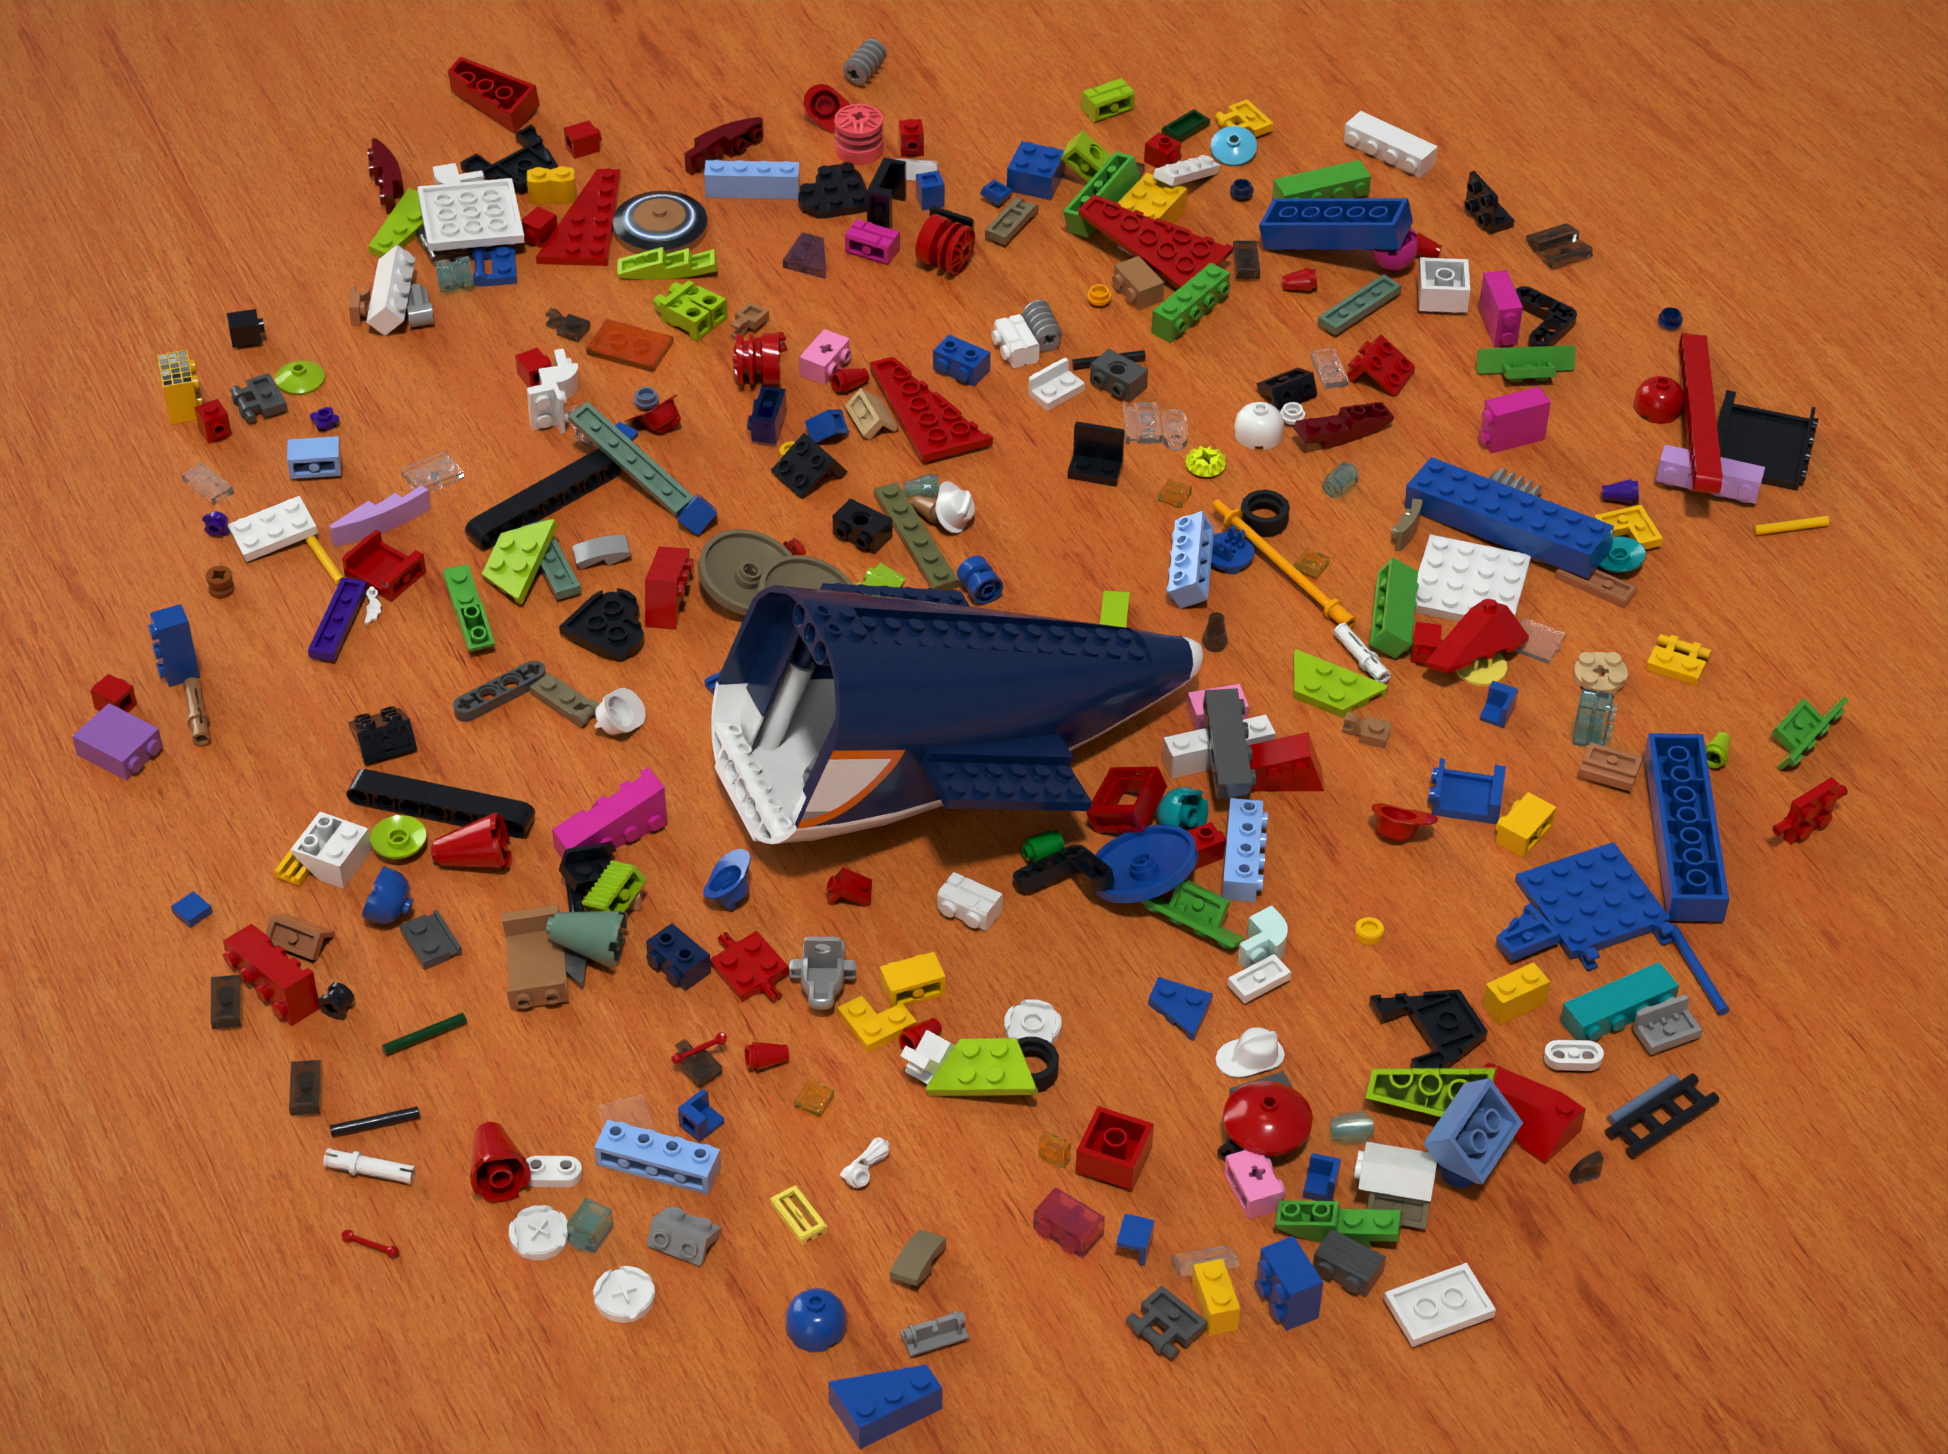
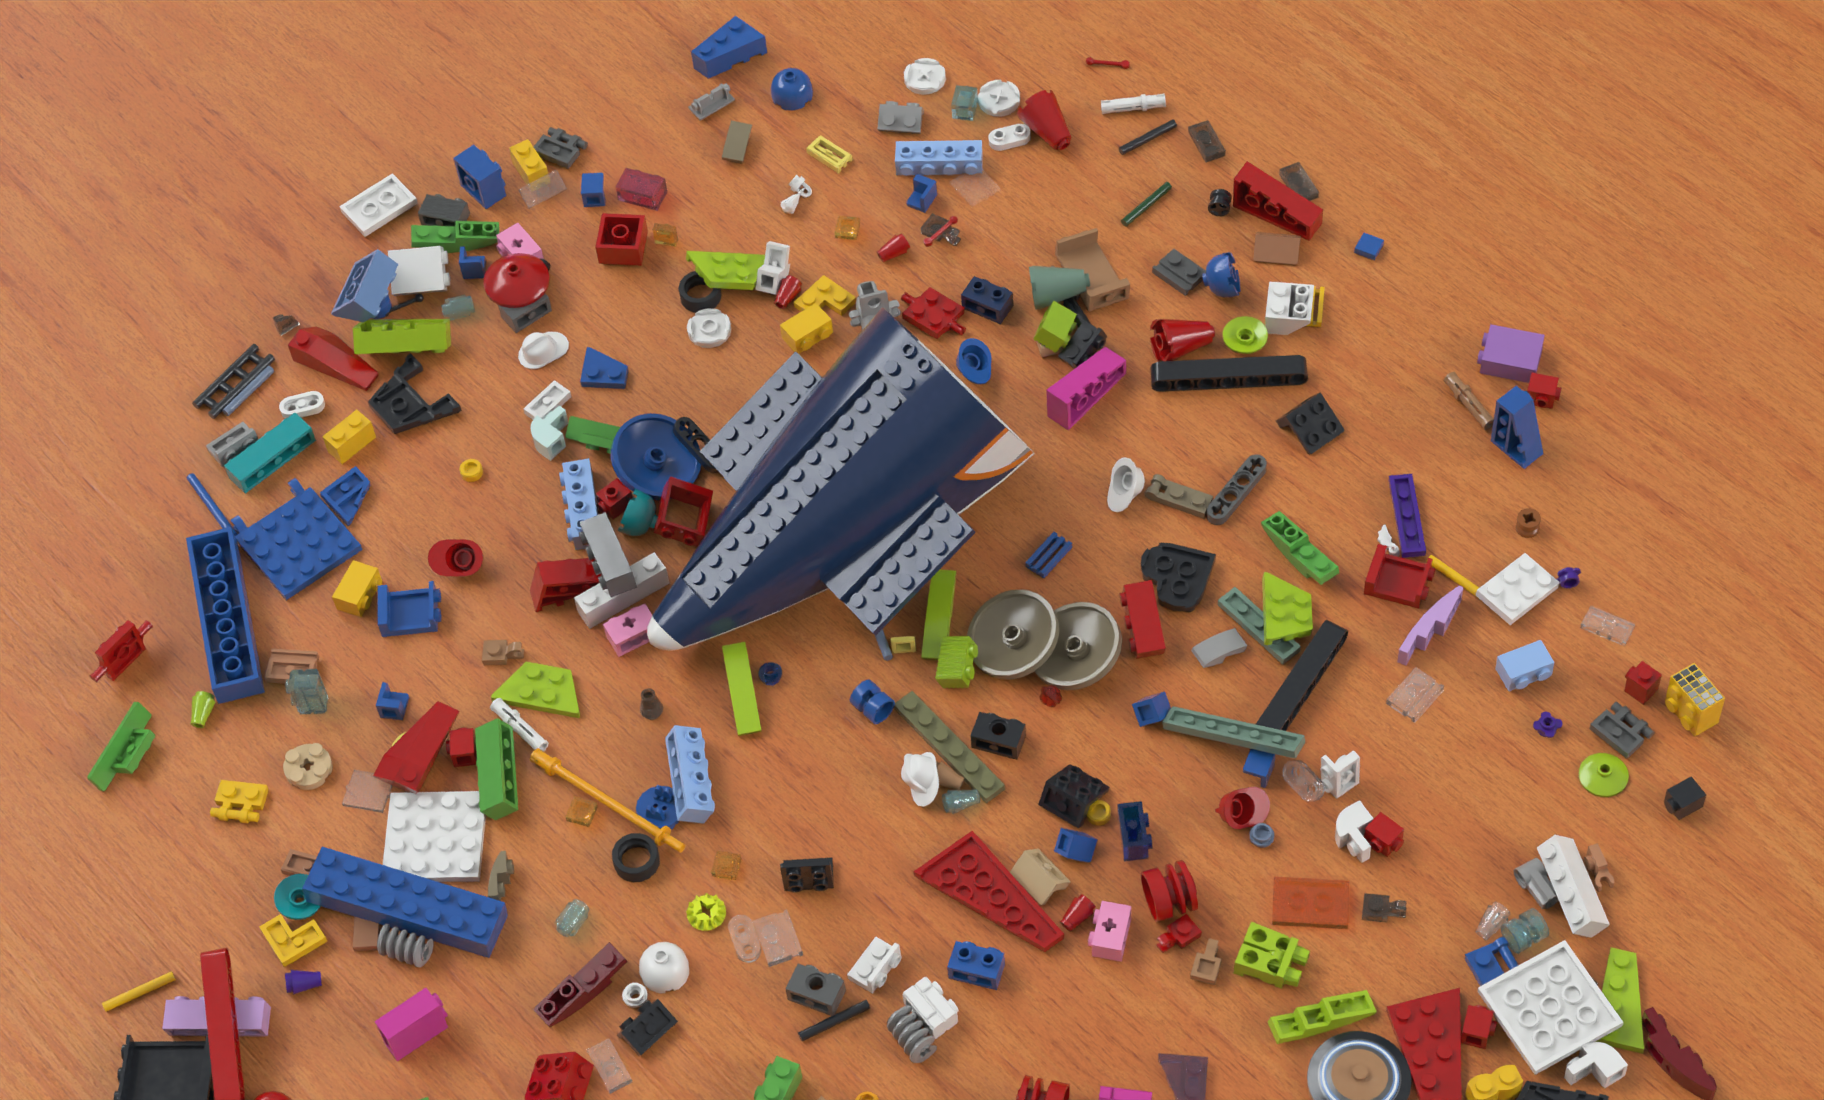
camera: 170 degrees right, 10 degrees up
(476, 292) = (1492, 920): none -> clear cone

